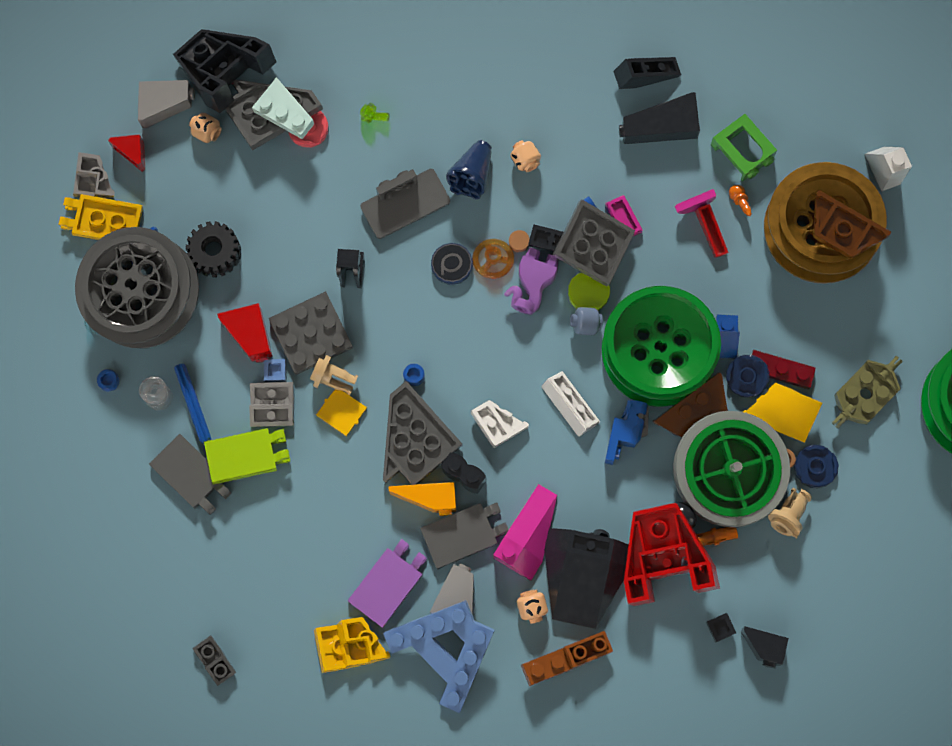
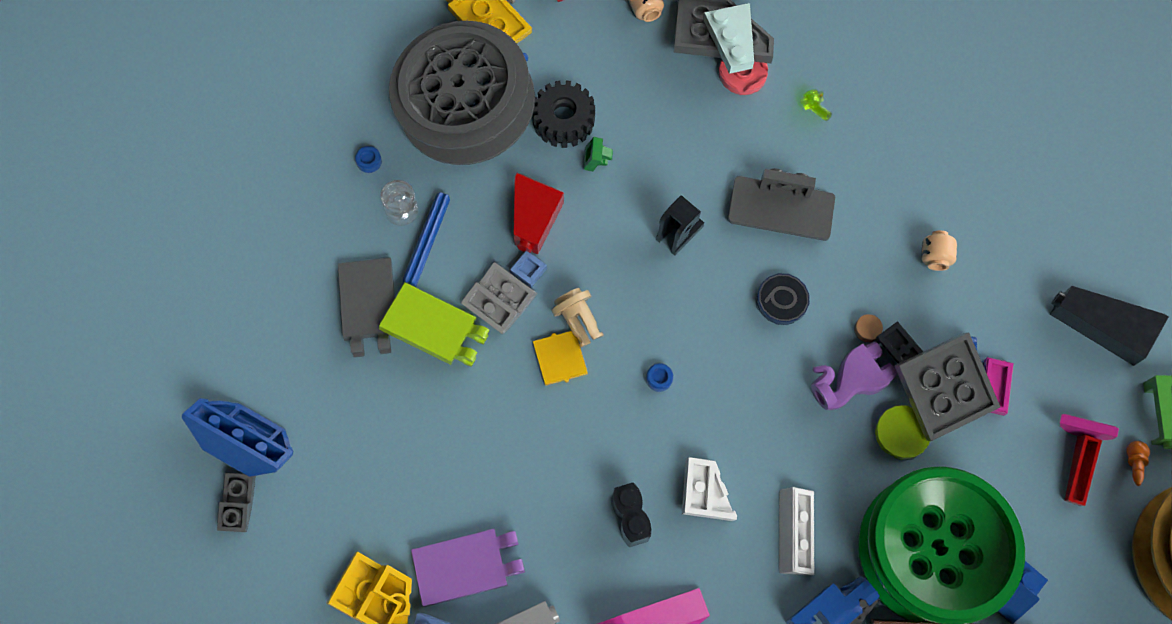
camera: 30 degrees right, 5 degrees down
(183, 620) = (238, 436): none -> blue wedge
(257, 260) = (596, 154): none -> green tile
(310, 332) = (591, 259): dark grey plate -> none
(415, 437) = (611, 440): dark grey wing -> none
(433, 497) = (580, 513): light orange slope -> none
(462, 534) = (580, 577): dark grey tile -> none
(470, 172) = (871, 224): dark blue cone -> none
(492, 250) = (834, 316): clear orange piece -> none
(586, 321) = (878, 460): sand blue head -> none
(645, 71) = (1124, 257): black slope -> none

